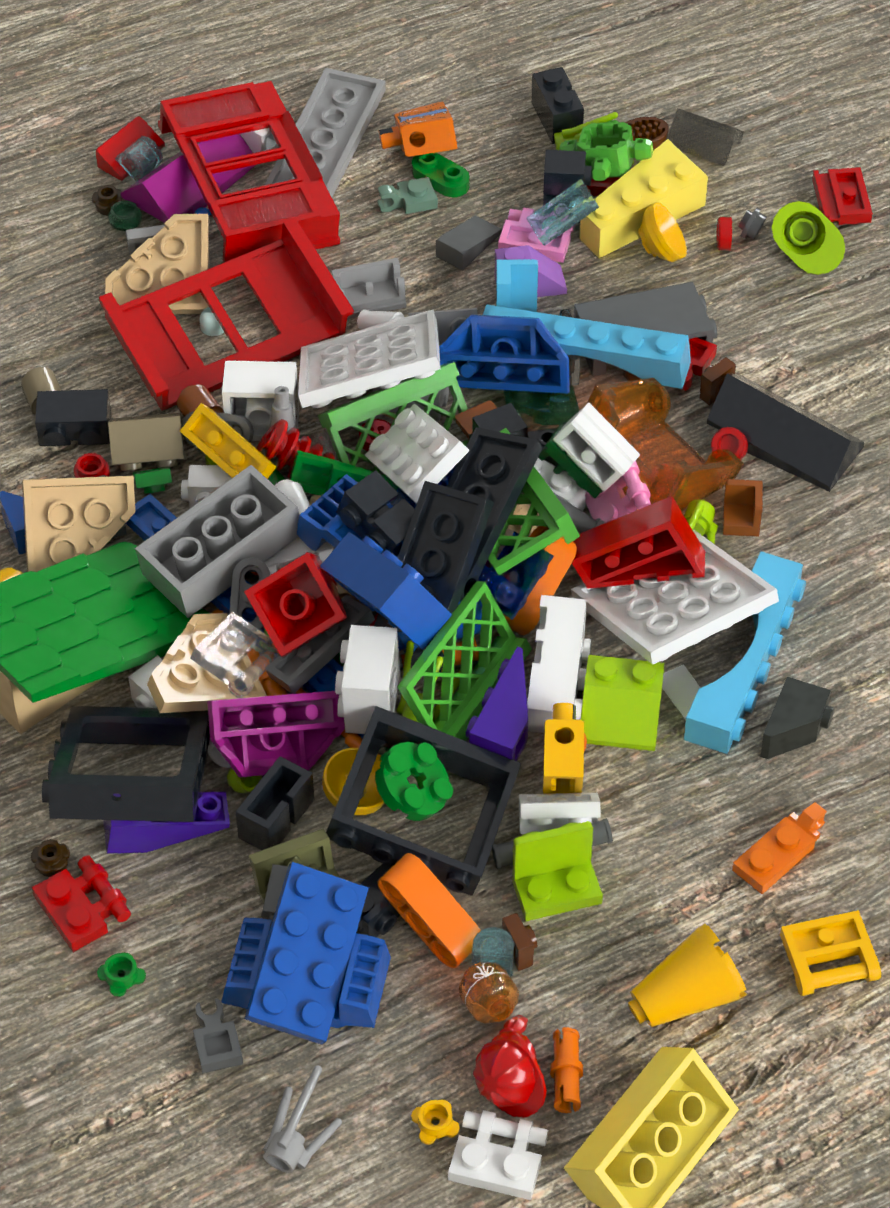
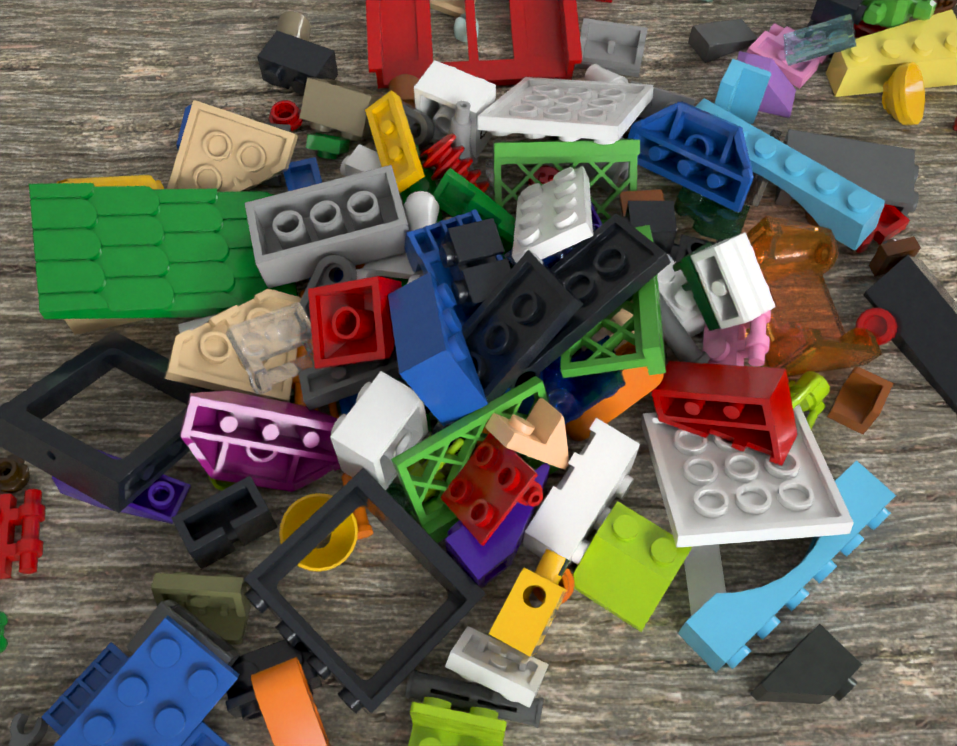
camera: 25 degrees right, 10 degrees up
(426, 768) = (384, 578): green plate -> none
(486, 677) = (490, 488): none -> red hinge
(502, 625) = (538, 436): none -> light nougat slope

